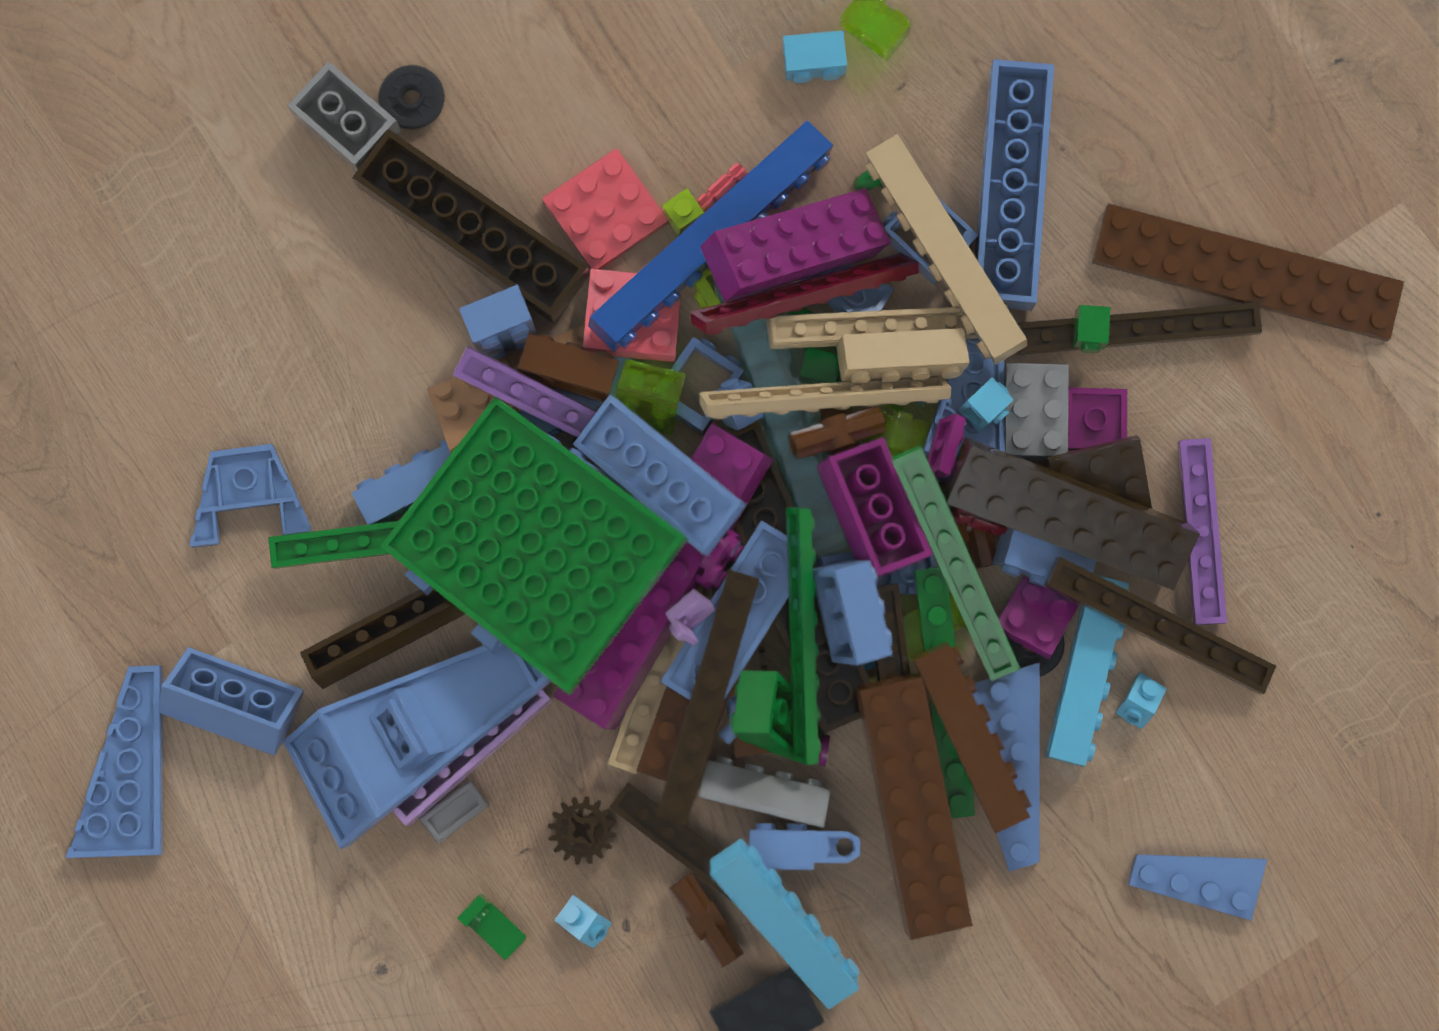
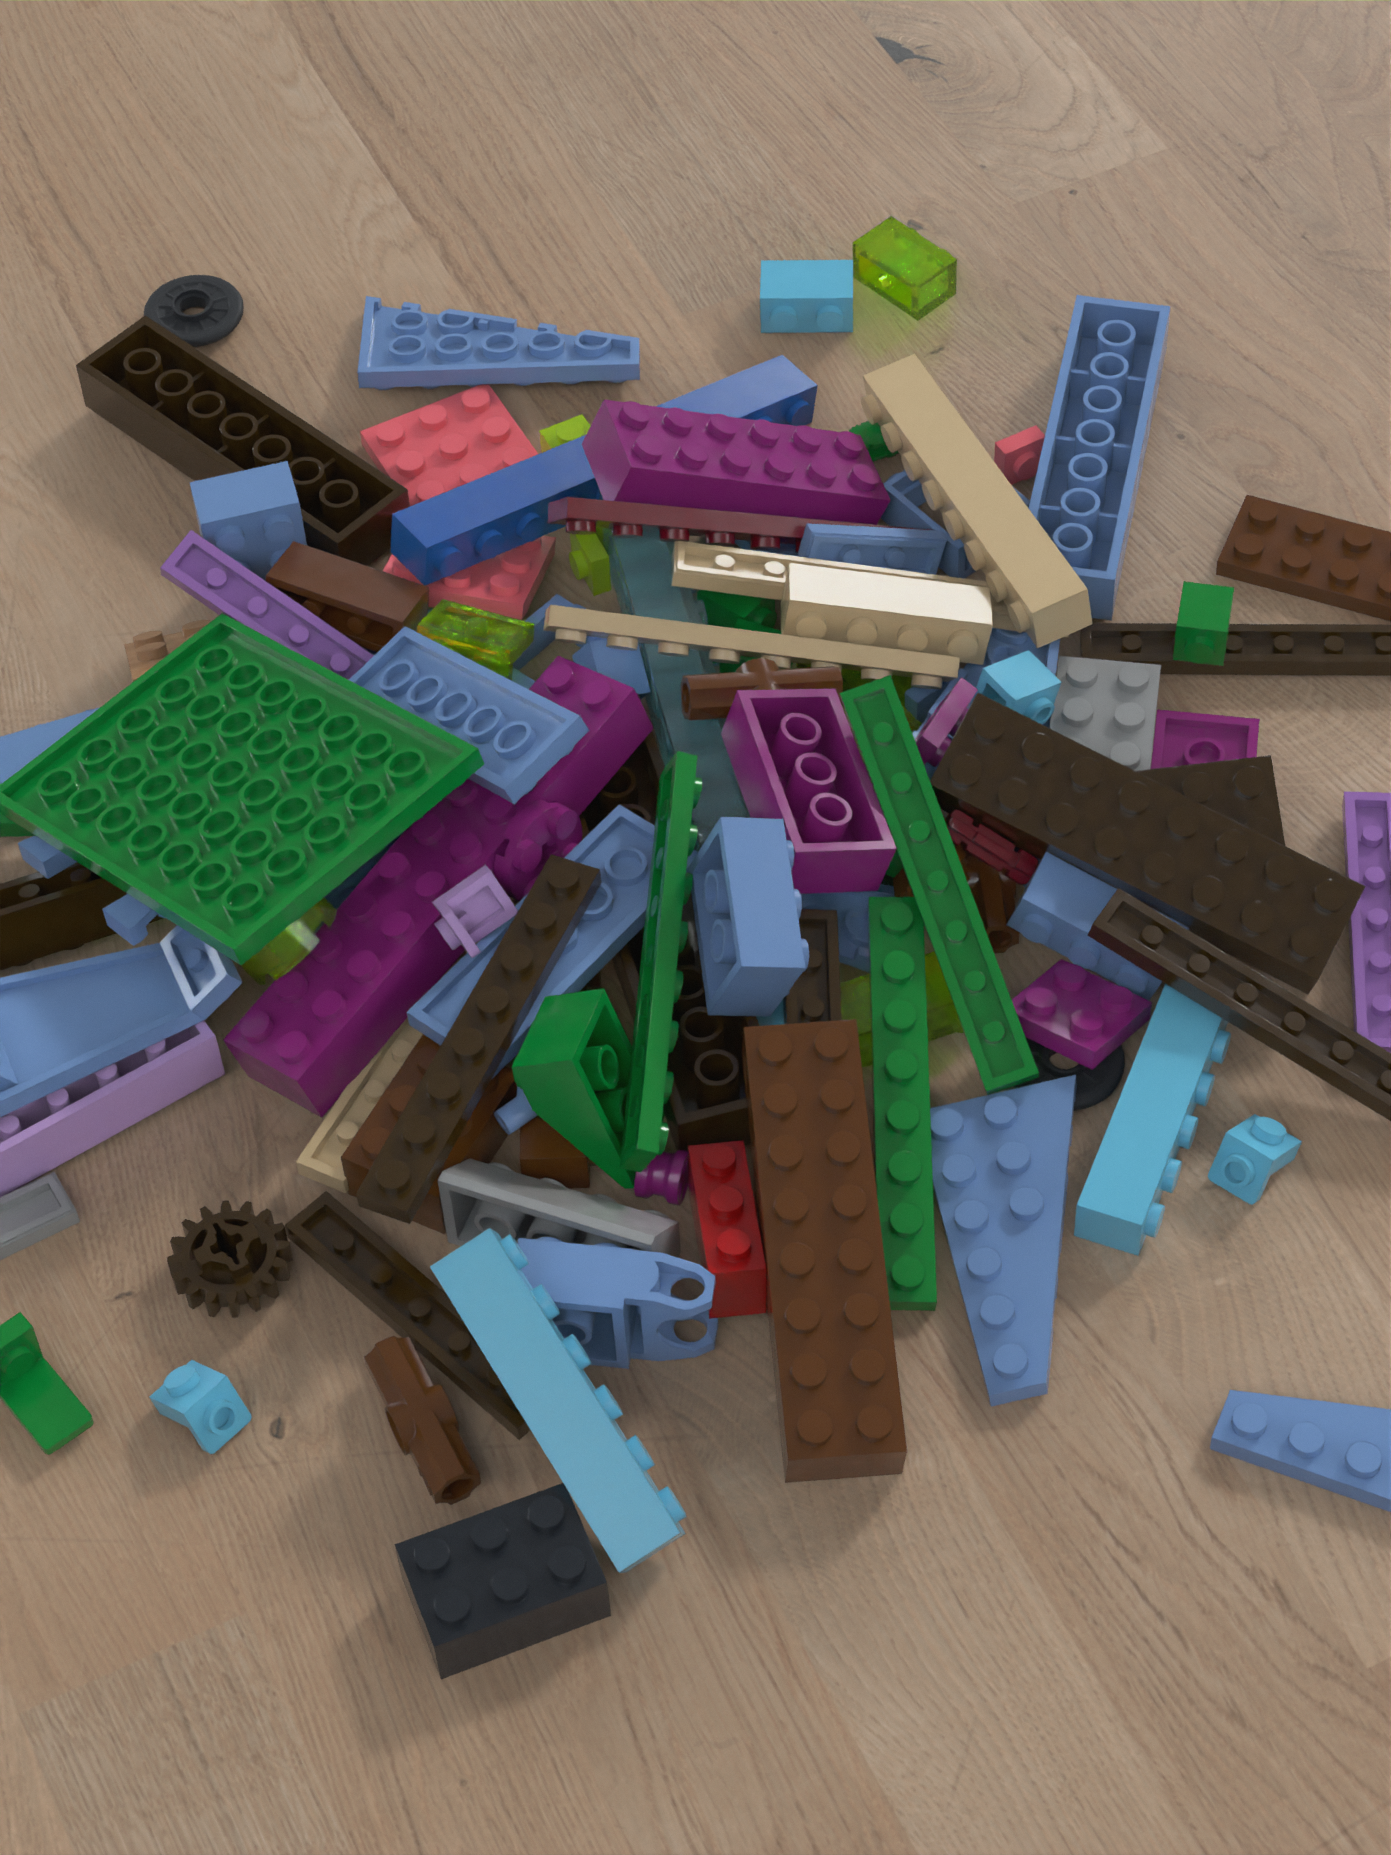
camera: 10 degrees right, 30 degrees down
(342, 115) = (76, 303): light grey brick -> none
(600, 122) = (479, 349): none -> medium blue wing
(857, 788) = (727, 1227): none -> red brick
(884, 290) = (875, 546): none -> medium blue tile
(966, 186) = (1019, 454): none -> coral plate
(971, 737) = (939, 1149): reddish brown brick -> none

